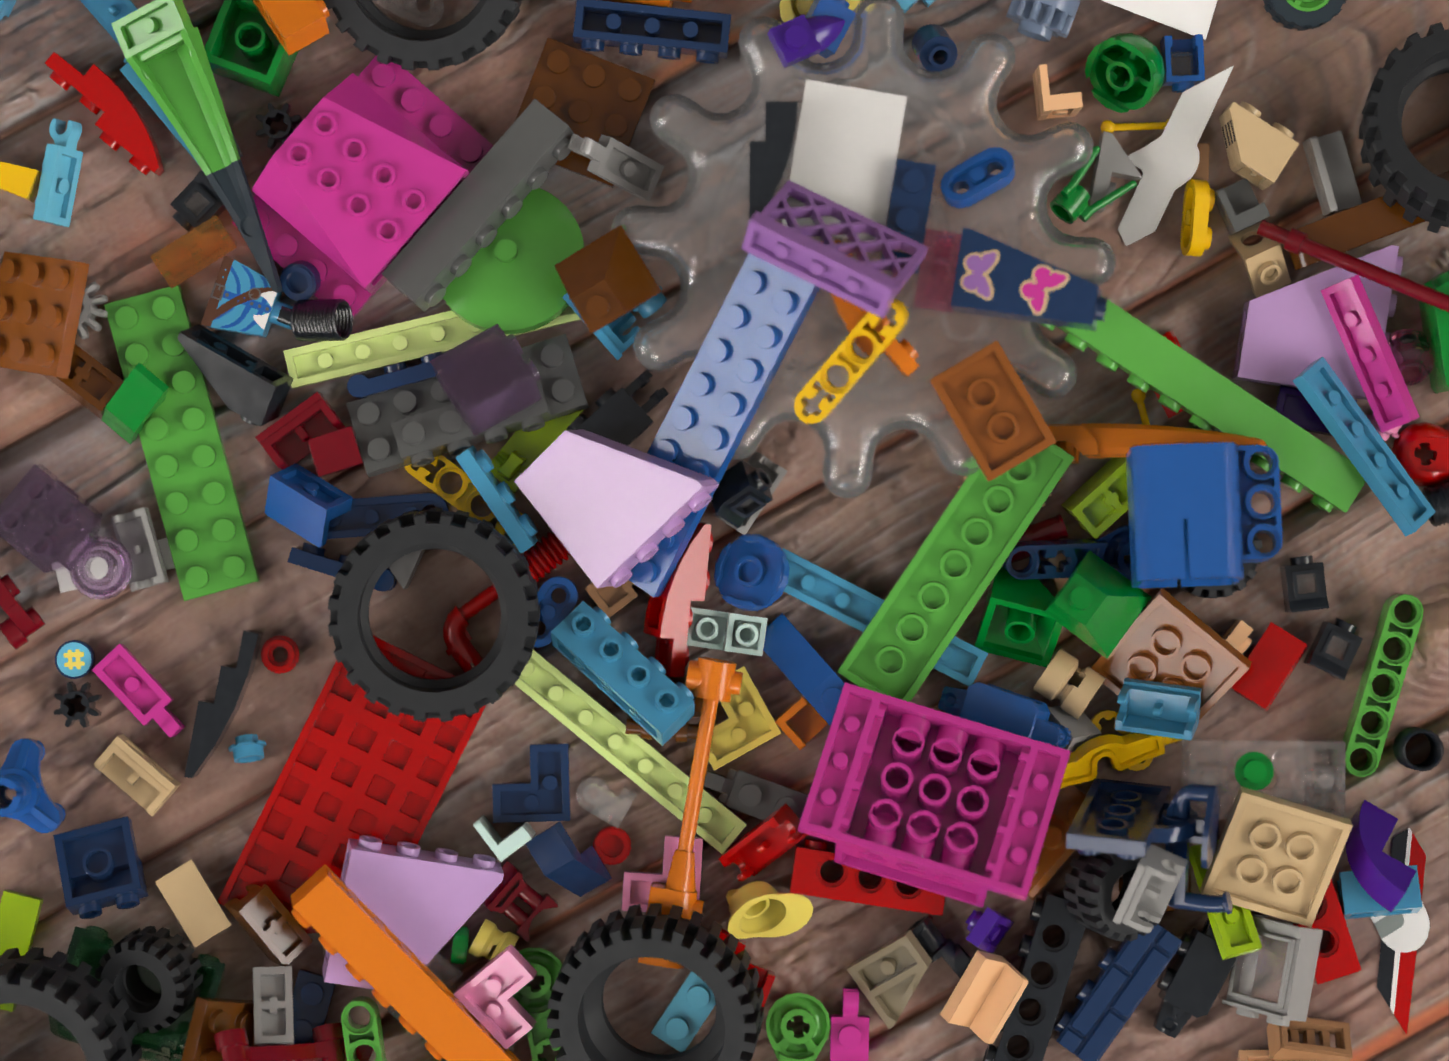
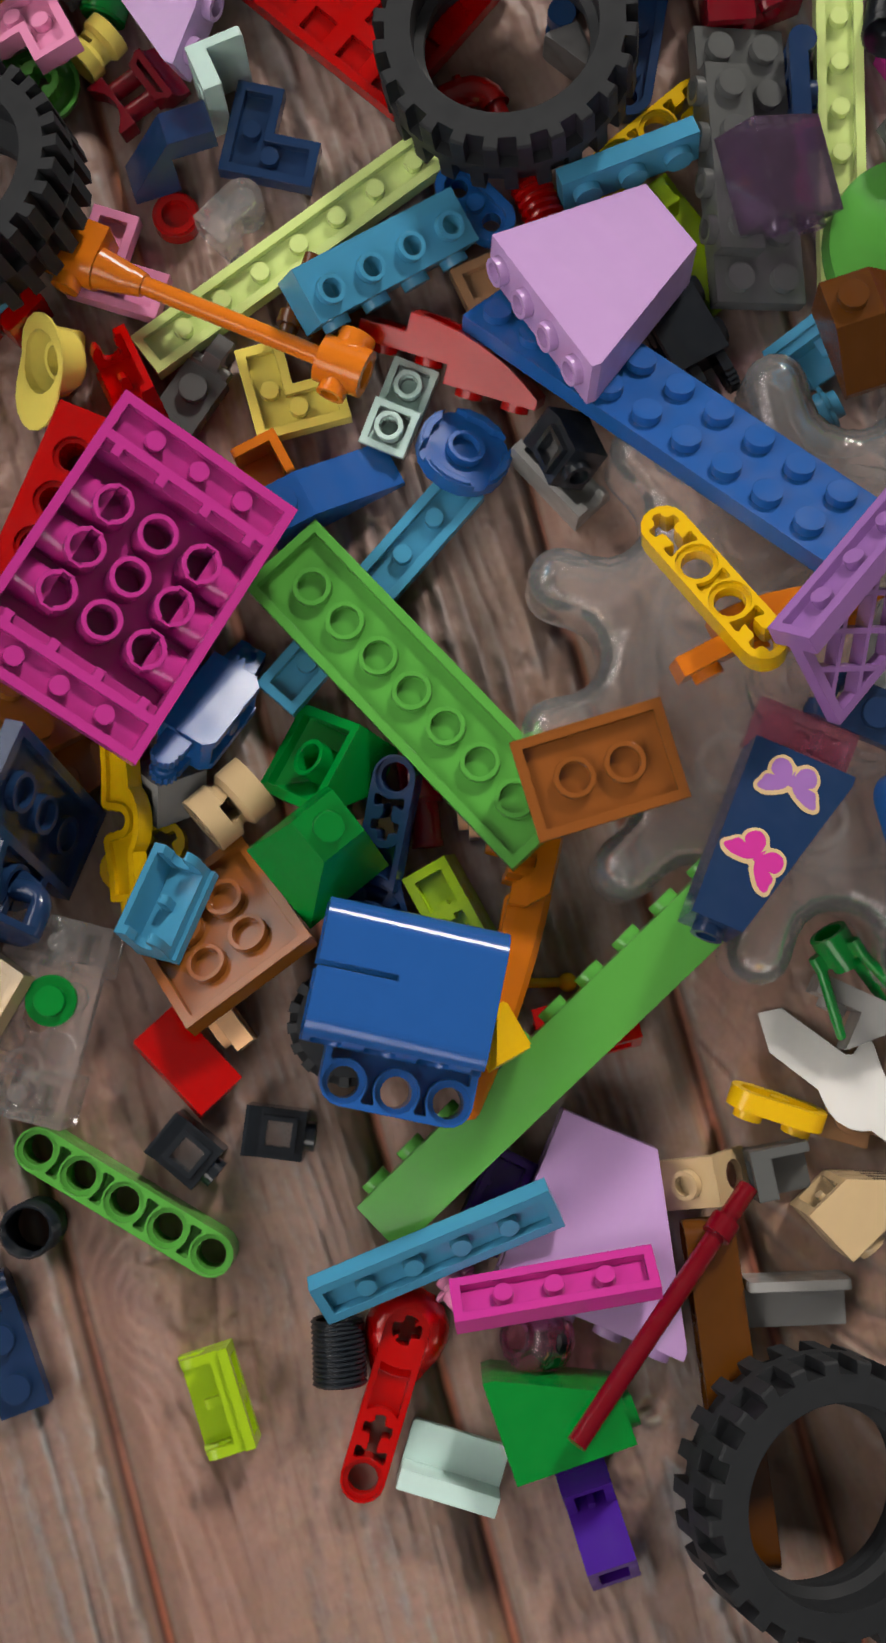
camera: 110 degrees right, 5 degrees down
(1203, 431) = (508, 1039): none -> yellow slope

